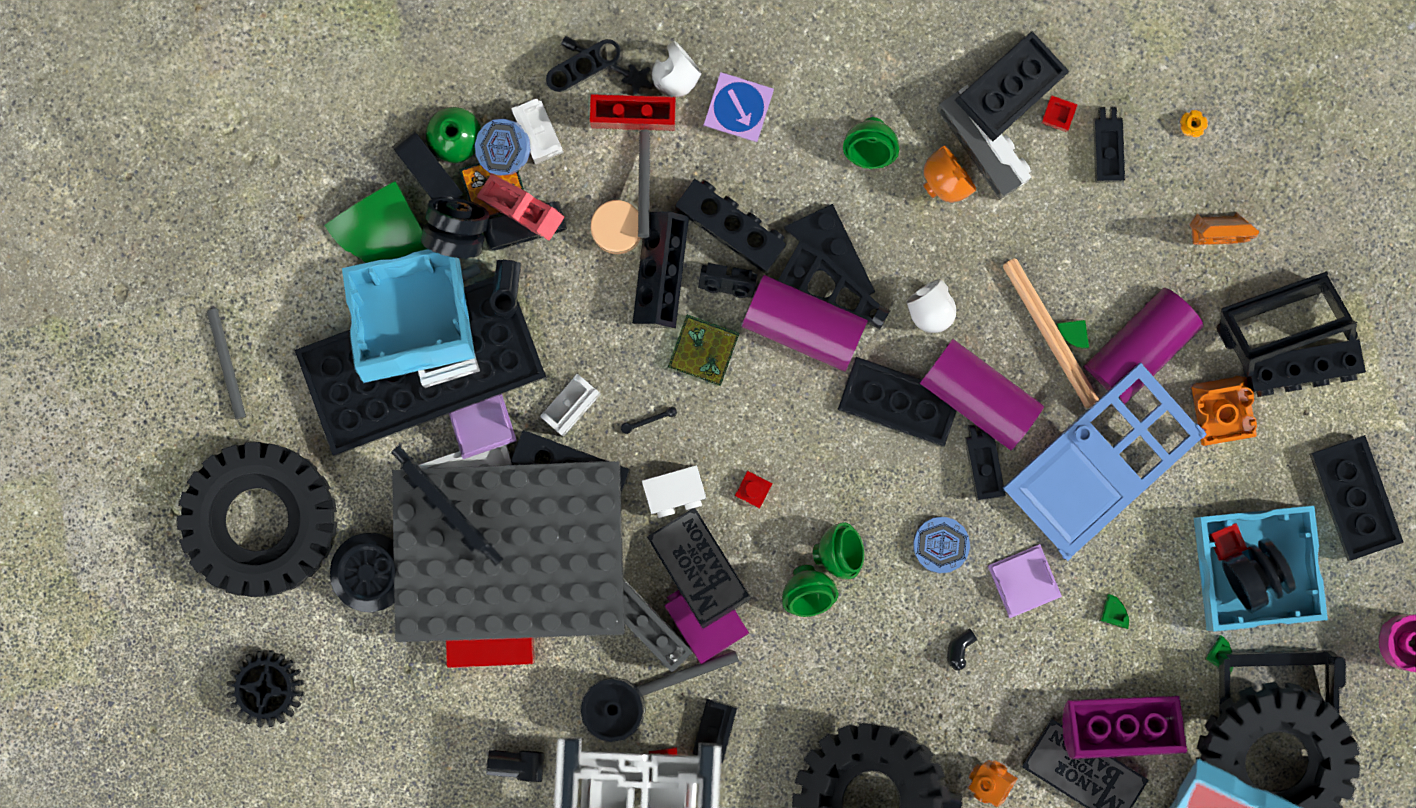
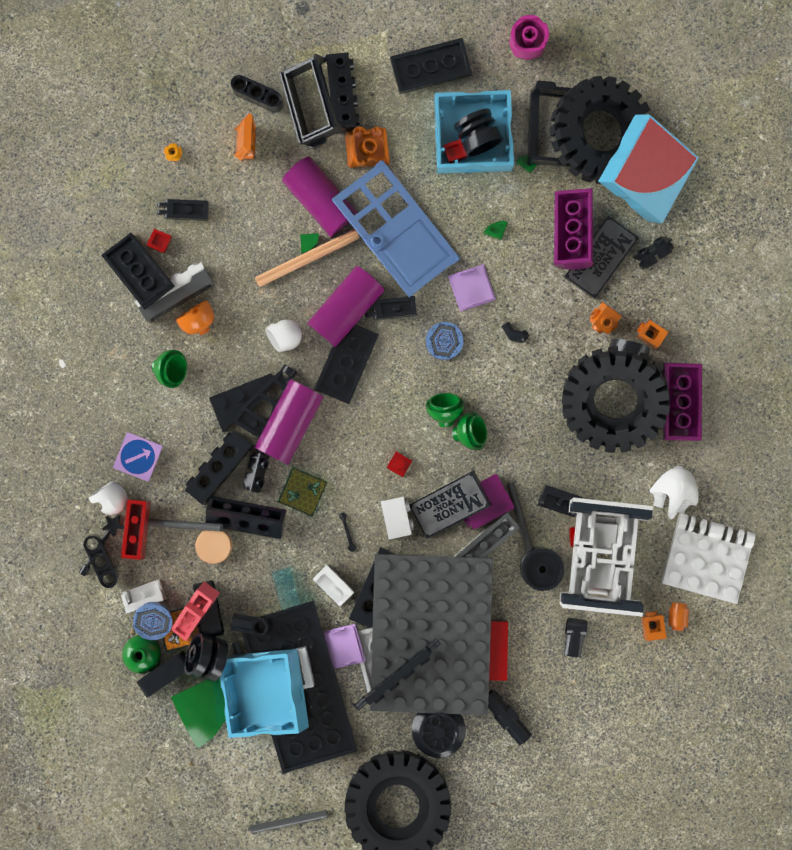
camera: 85 degrees left, 0 degrees up
(254, 687) = (520, 809): black gear -> none
(392, 672) = (507, 718): none -> black piece
(561, 336) = (286, 588): none -> clear light blue slope
(1302, 232) = (250, 87): none -> black beam

